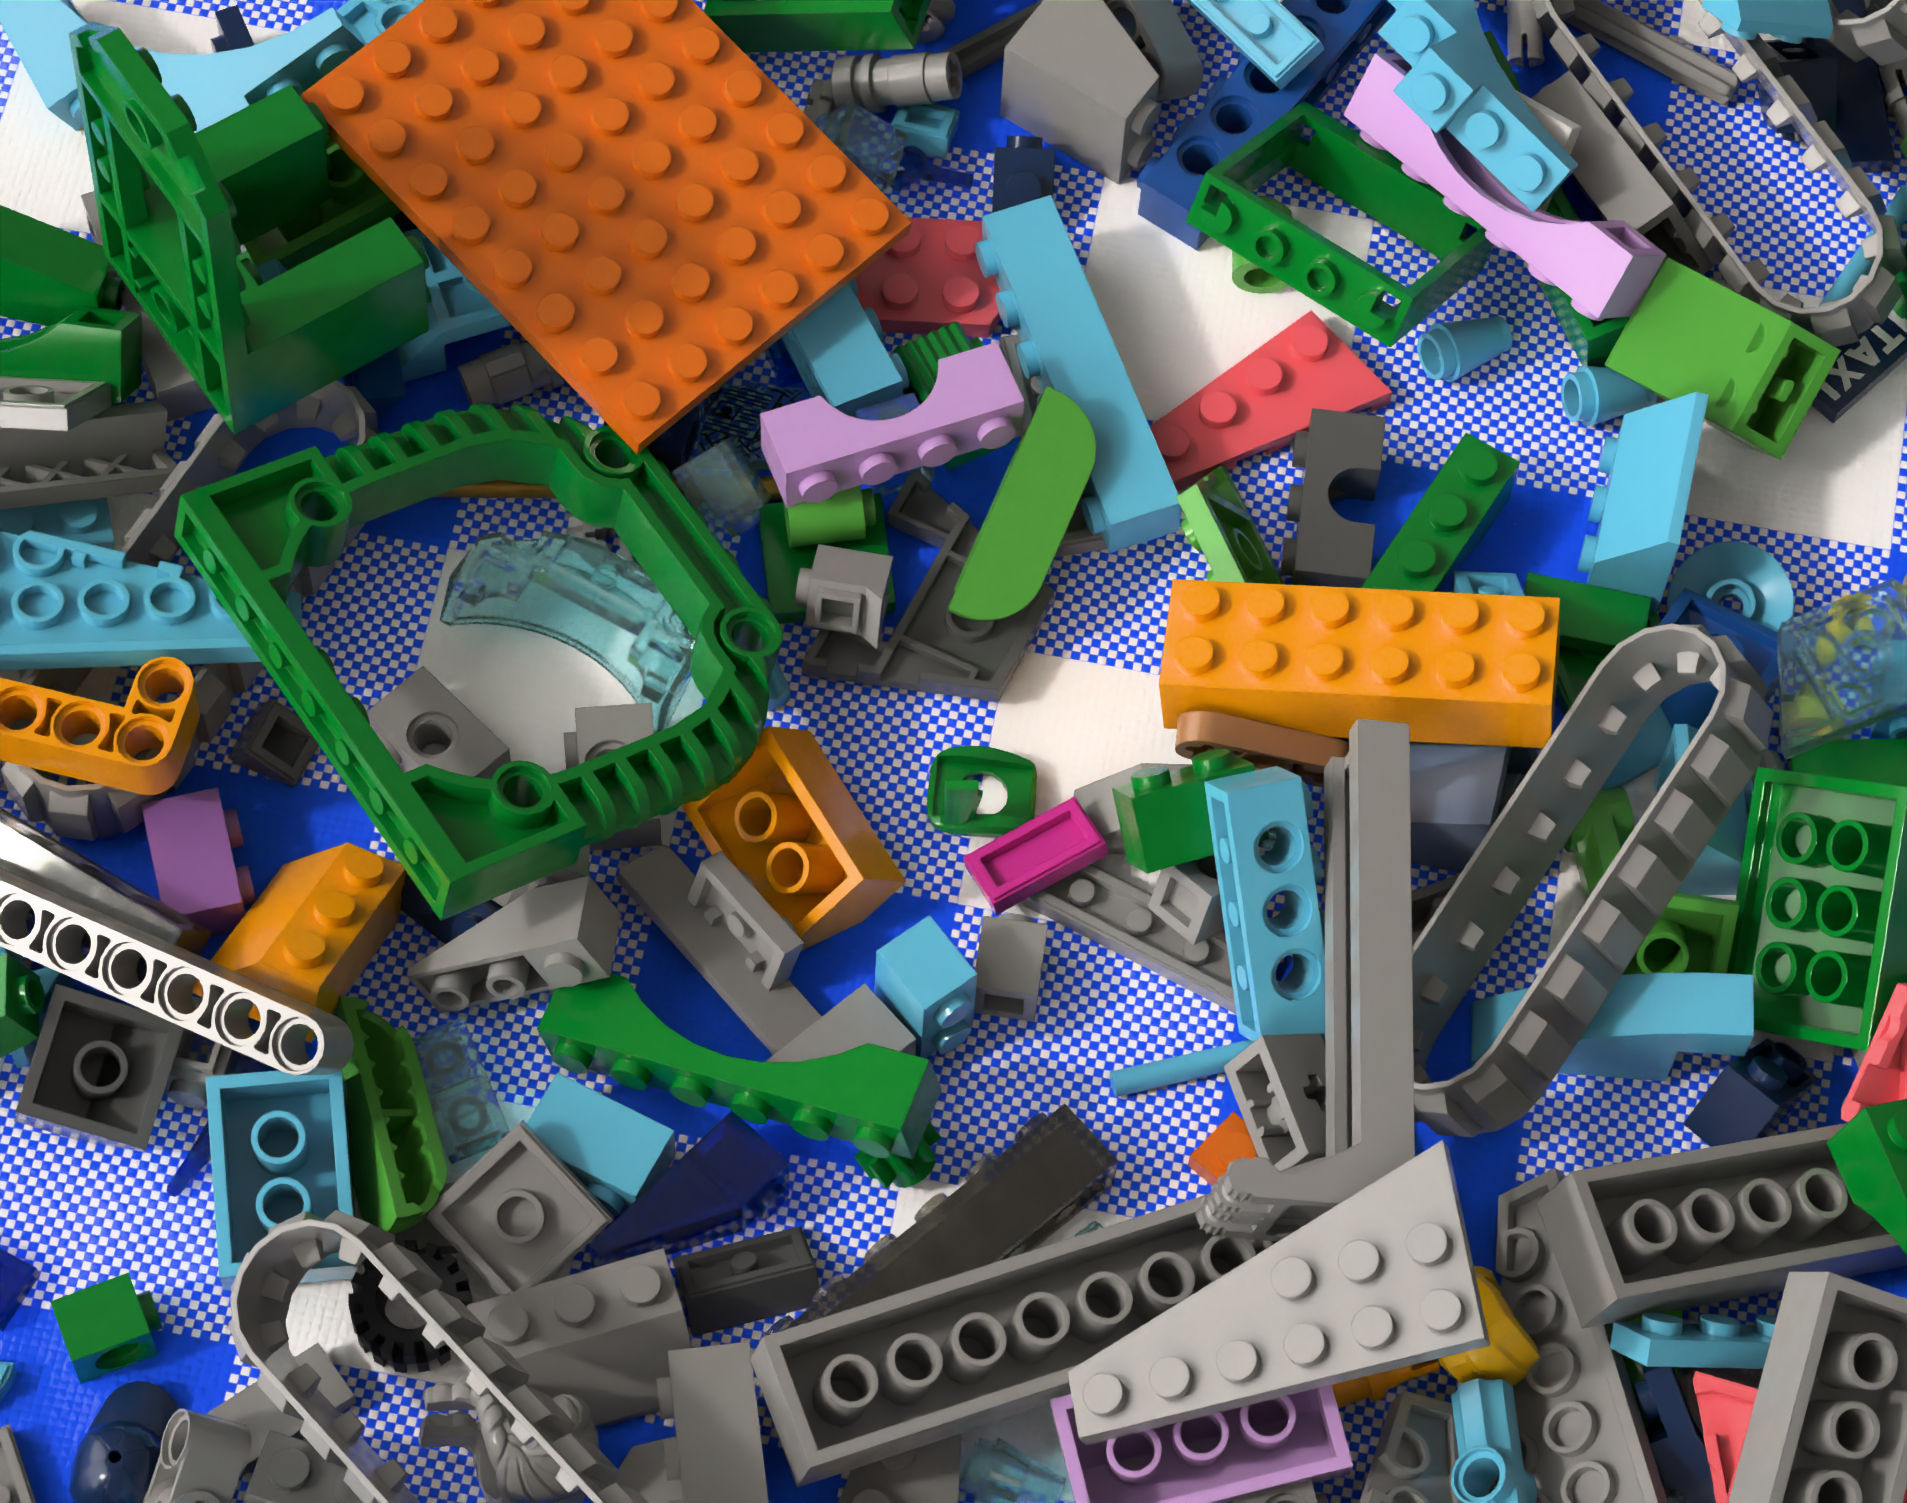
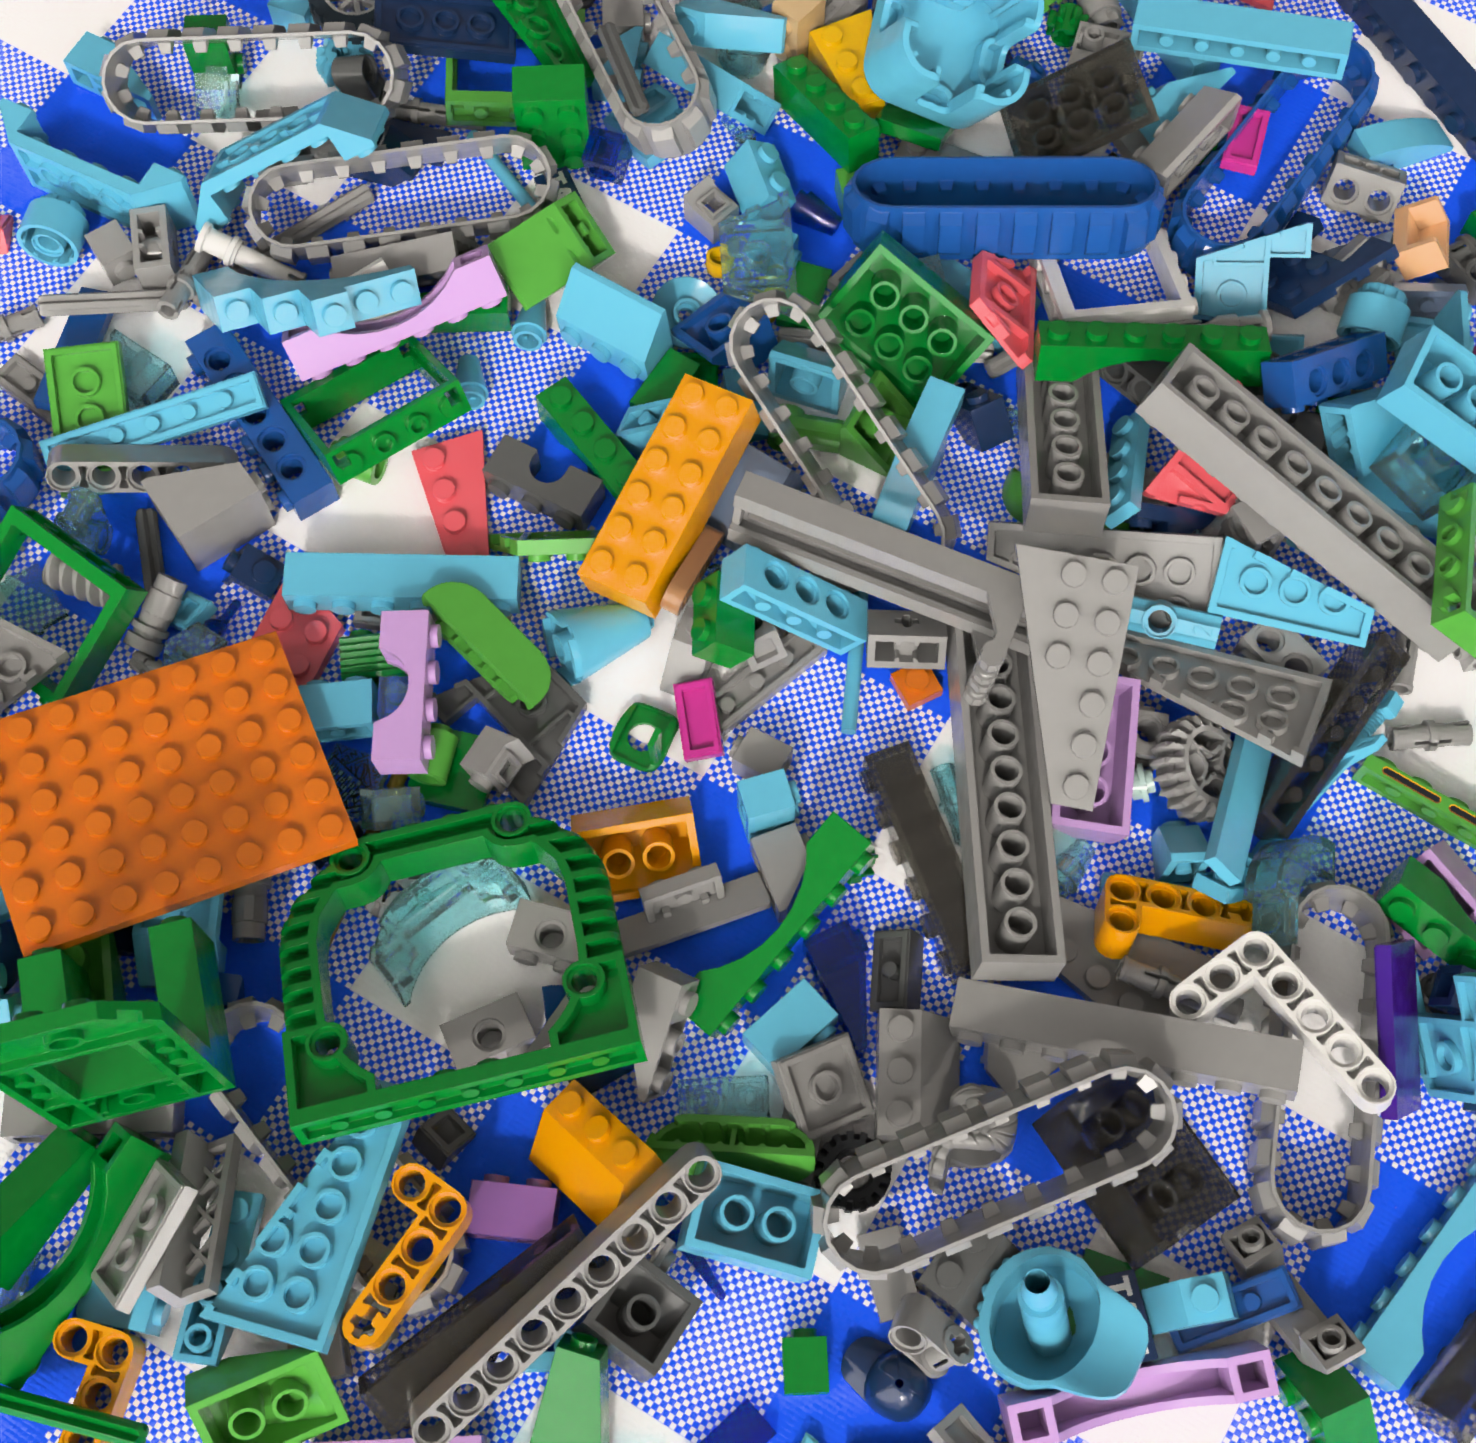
camera: 65 degrees left, 5 degrees up
(1103, 660) = (592, 637): none -> medium azure cone

